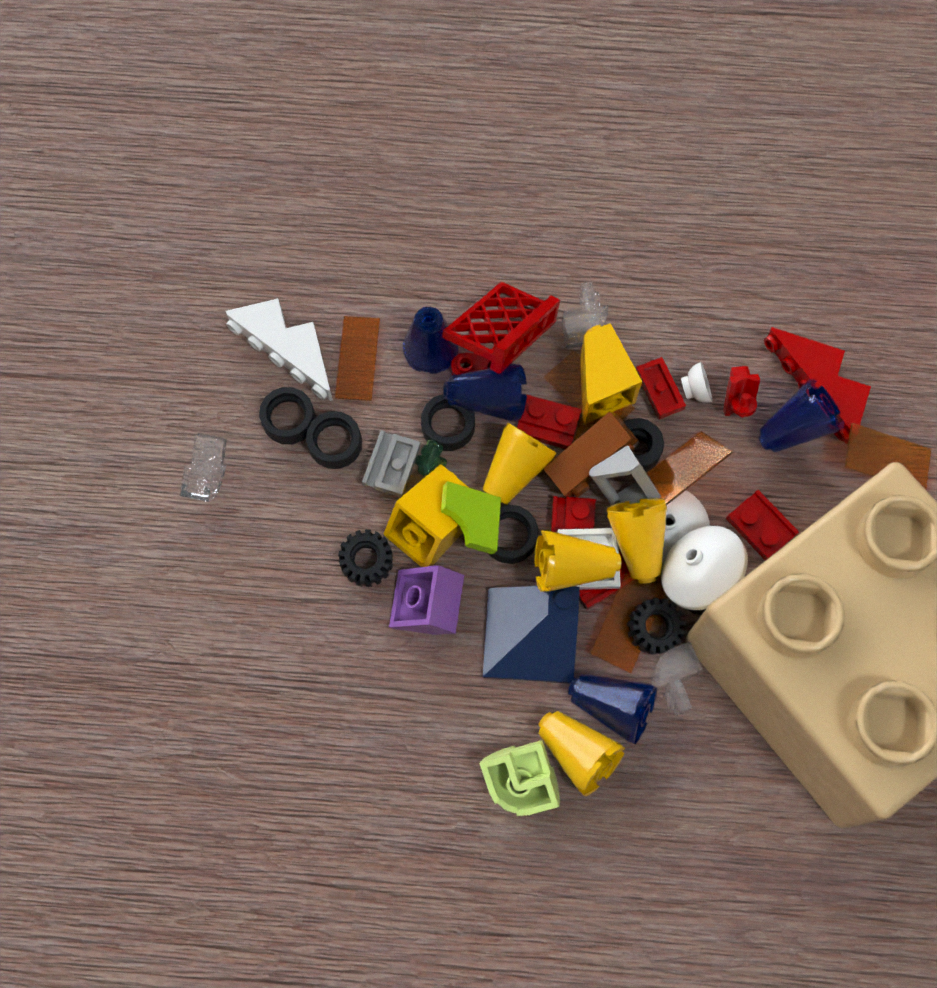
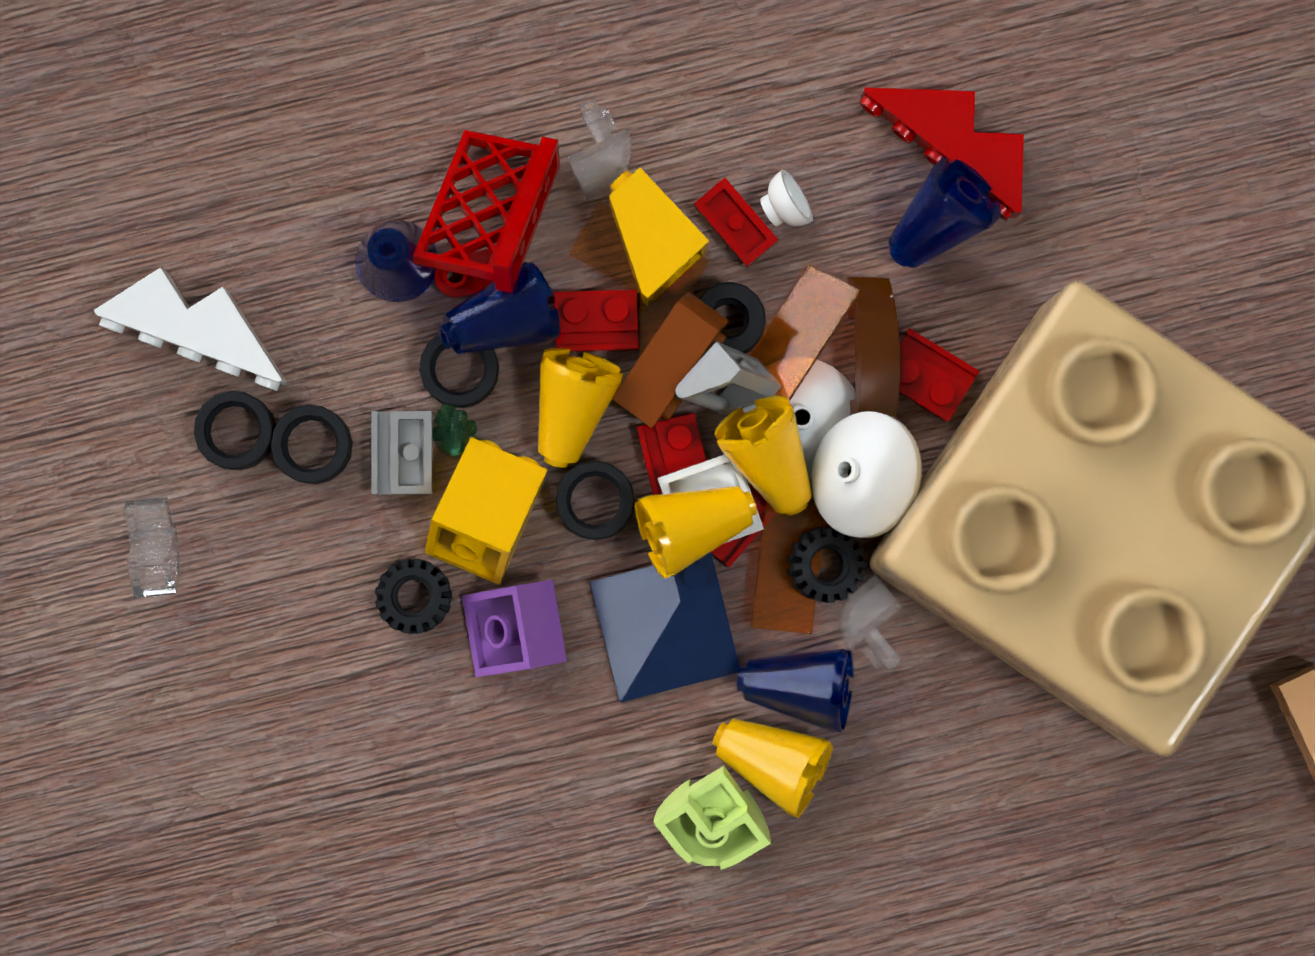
camera: 20 degrees left, 15 degrees up
(357, 358) = (300, 310): clear orange piece -> none
(475, 514) = (542, 498): lime tile -> none
(732, 490) = (875, 347): none -> reddish brown slope
(741, 392) = (849, 202): red hips -> none
(873, 450) = (1072, 227): clear orange piece -> none

